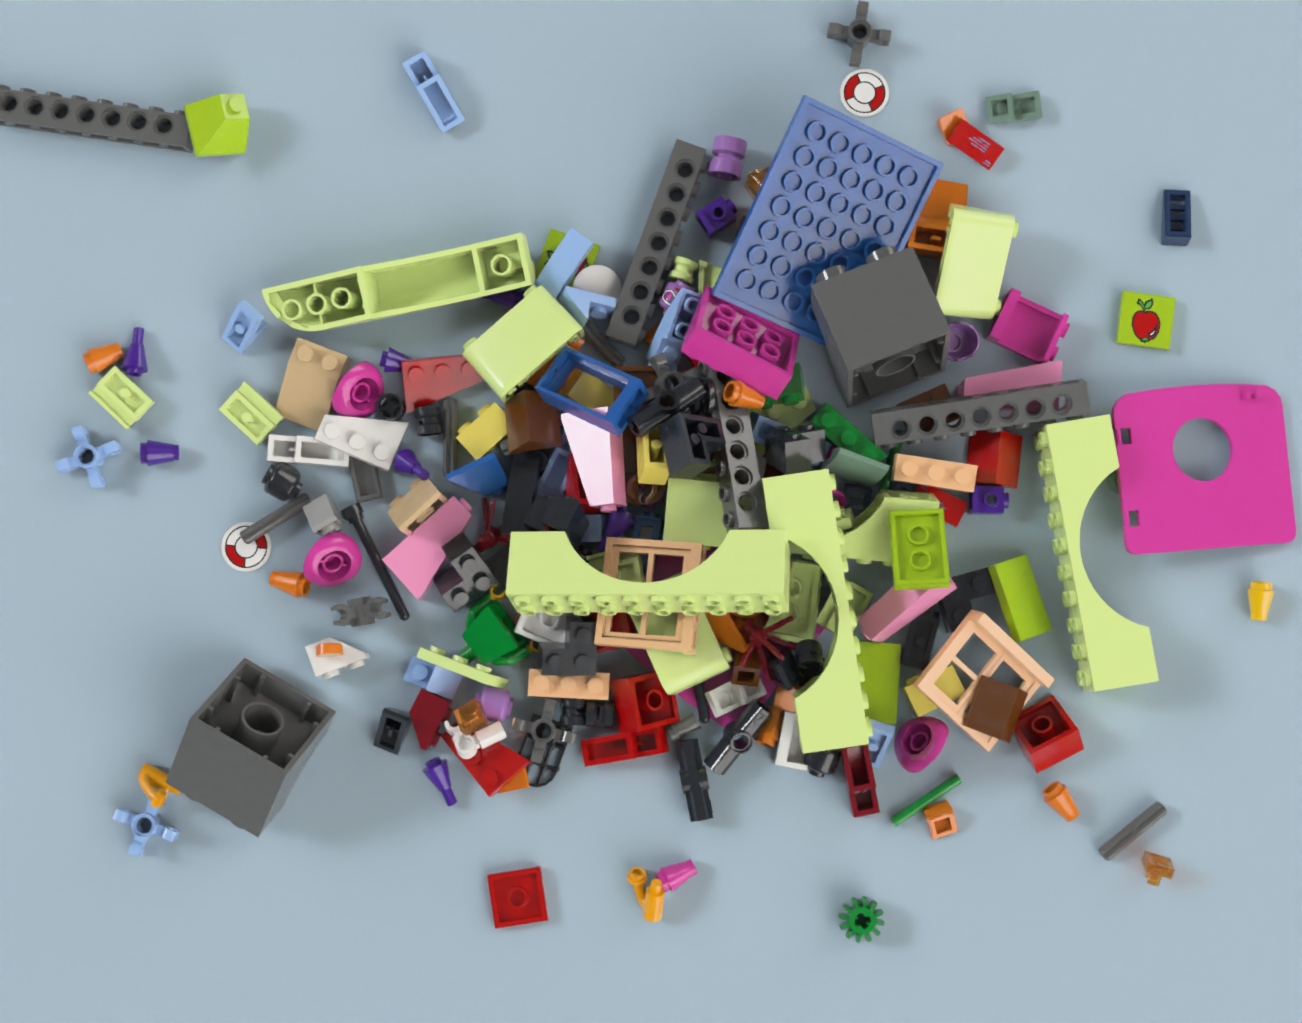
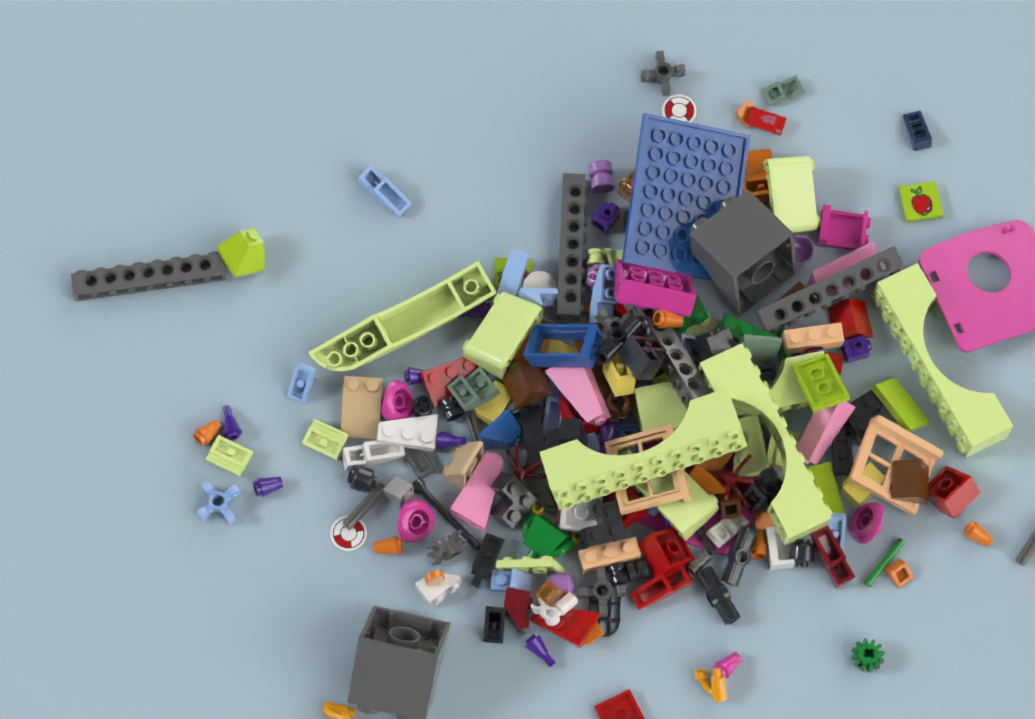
camera: 20 degrees left, 15 degrees down
(410, 637) = (486, 558): none -> black hinge
(461, 407) = (473, 390): none -> sand green slope

